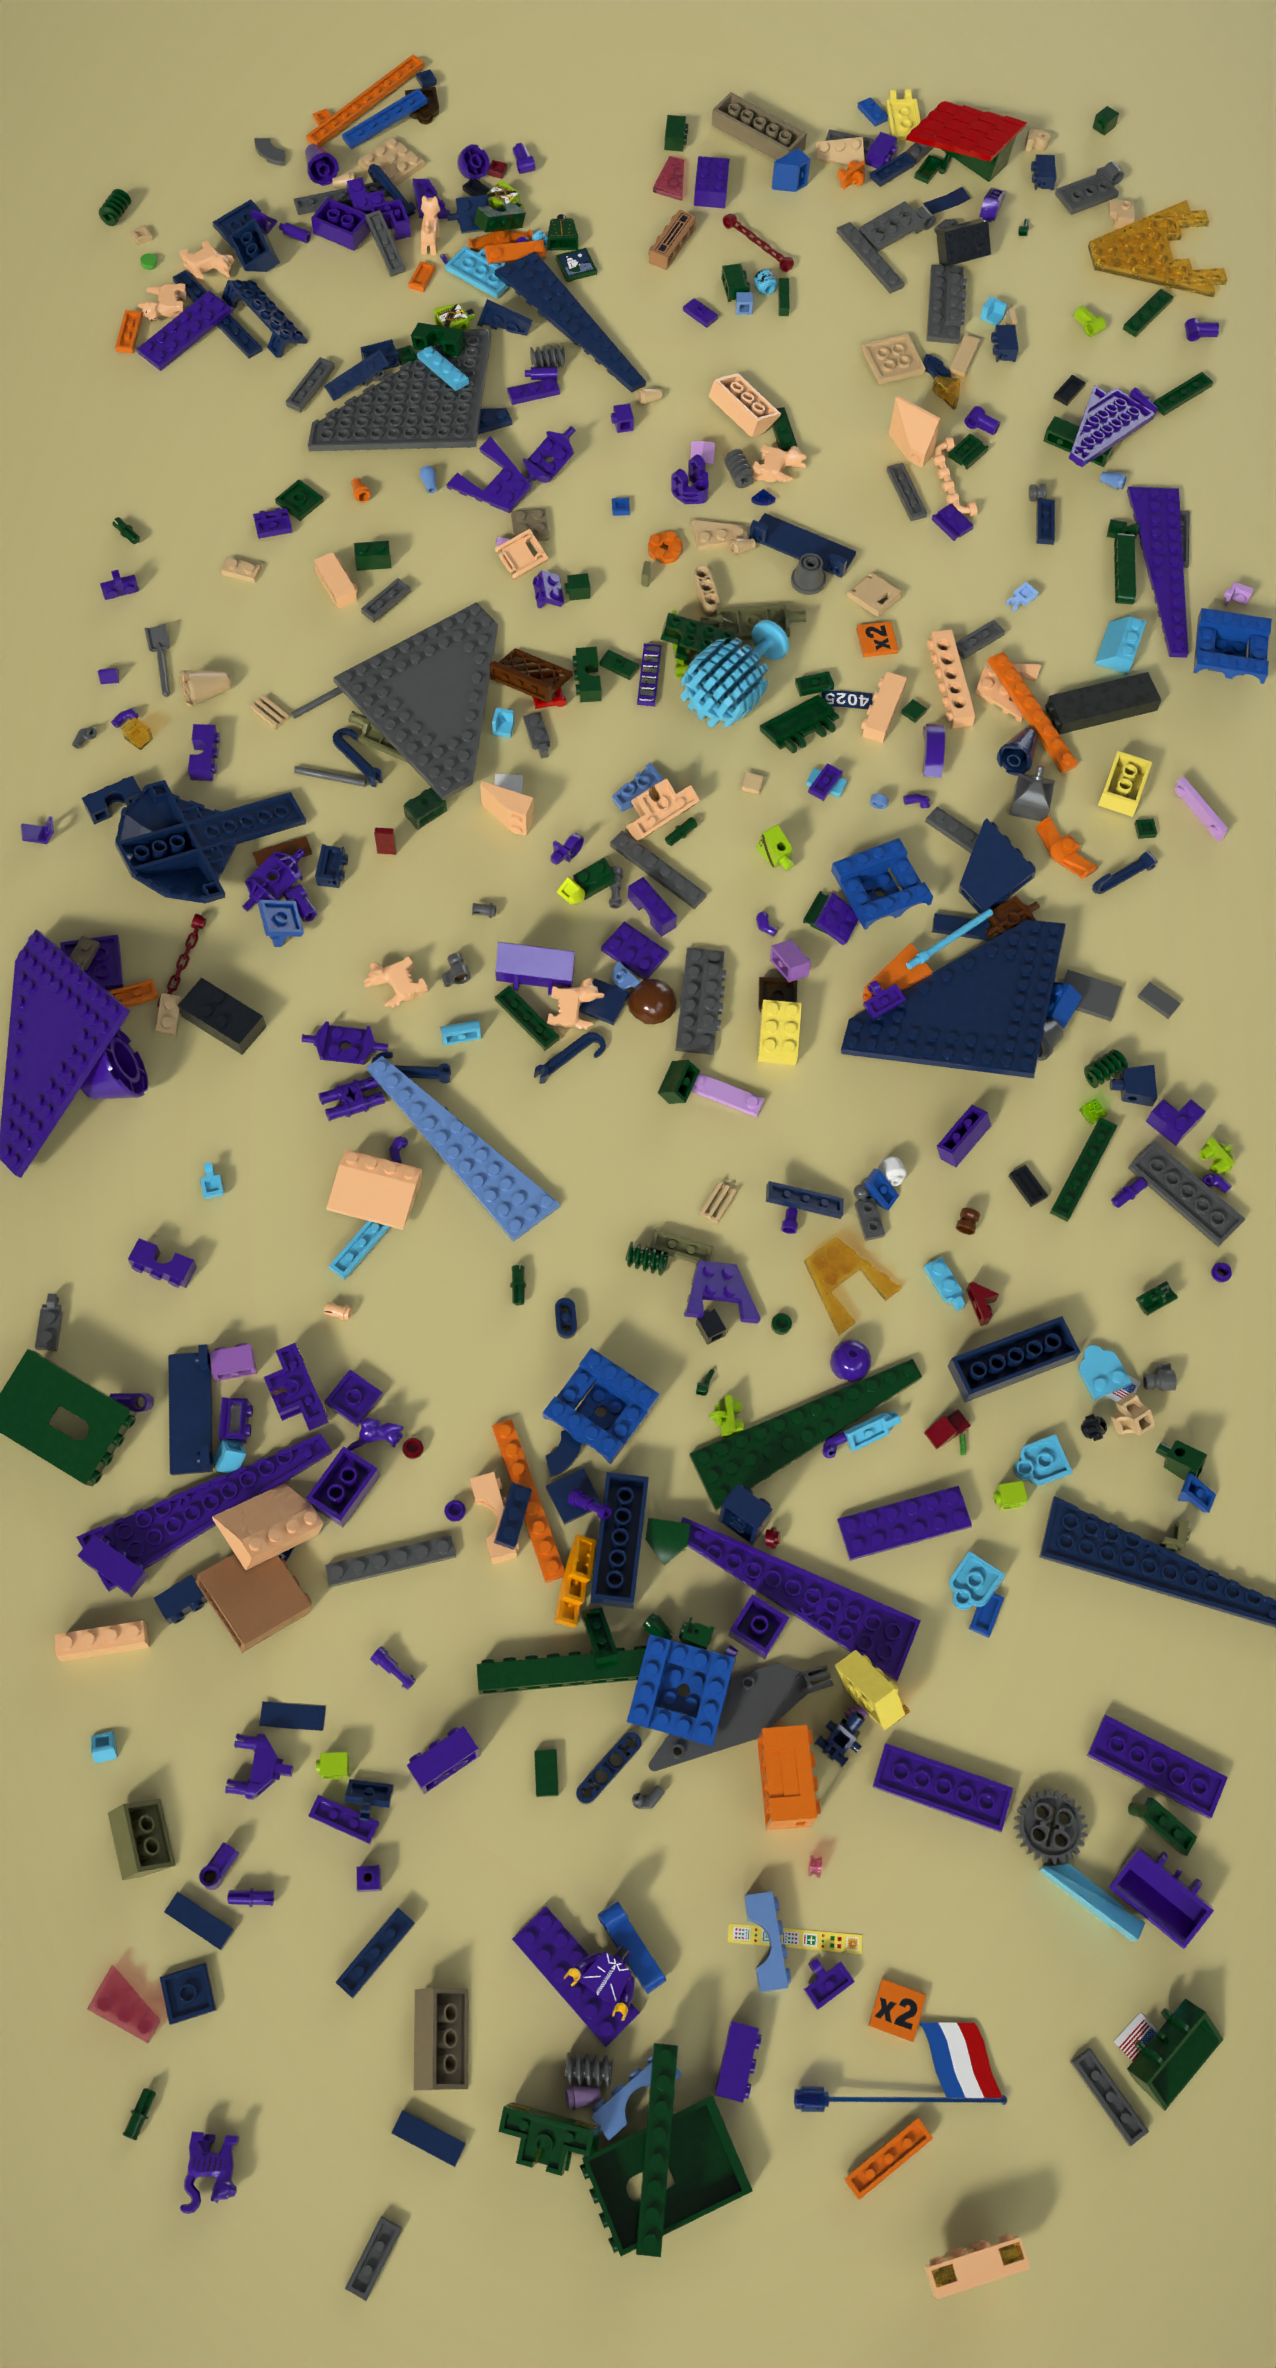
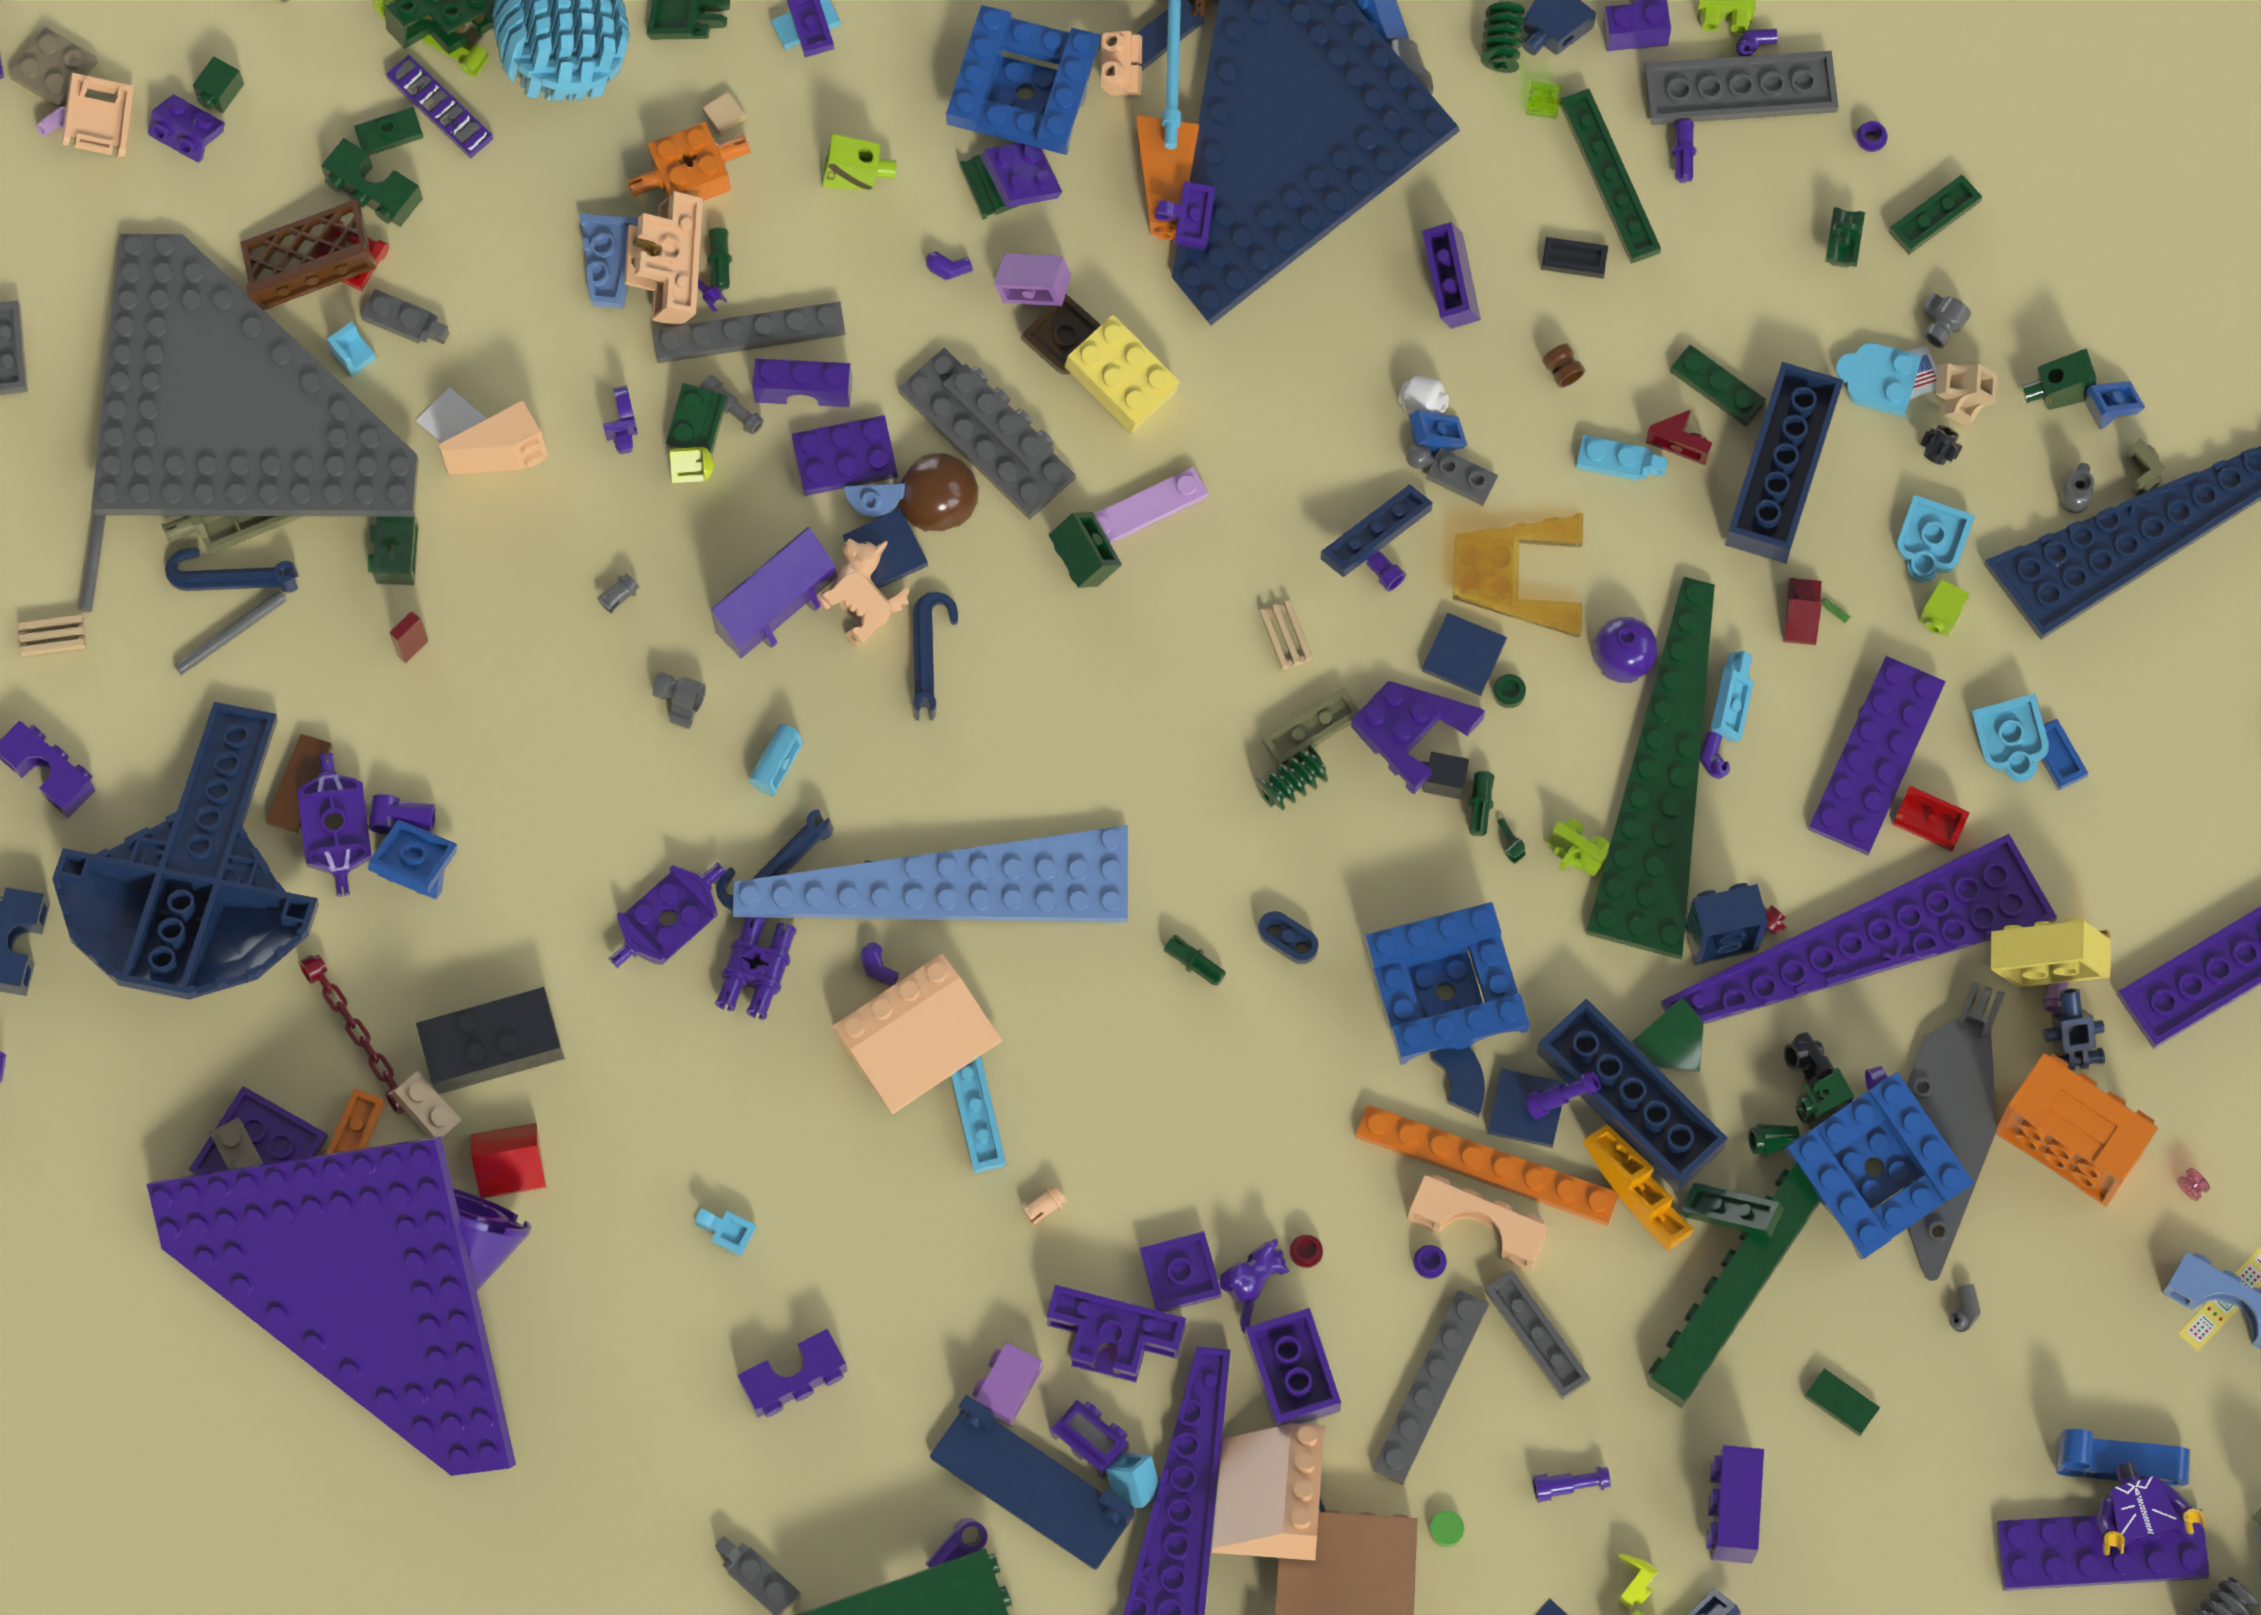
camera: 45 degrees left, 5 degrees up
(171, 1066) = (508, 1160): none -> red slope
(321, 1626) = (1447, 1529): none -> bright green tile
(331, 866) = (379, 735): dark blue hinge -> none
(362, 1745) = (1638, 1589): none -> neon yellow plate
(399, 978) = (630, 777): light nougat animal -> none
(458, 1591) = (1537, 1334): none -> dark grey plate
(512, 1516) = (1501, 1195): dark blue plate -> none
(527, 1018) = (827, 662): dark green plate -> none
(611, 1770) = (1889, 1326): dark blue beam -> none
(660, 841) = (710, 295): none -> dark purple hand
(711, 1353) = (1481, 803): none -> dark green axle
(713, 785) = (689, 164): none -> orange brick
(715, 1610) = (1808, 1056): none -> black plate
(758, 1626) = (1868, 1021): dark purple brick -> none
(781, 1289) = (1464, 654): none -> dark blue tile
(894, 1575) = (1931, 818): none -> red hinge
(929, 916) = (1118, 55): none -> light nougat hips
(1025, 1299) = (1717, 385): none -> dark green plate
(1133, 1512) = (2077, 490): none -> dark grey piece
(1210, 1332) = (1935, 214): none -> dark green plate

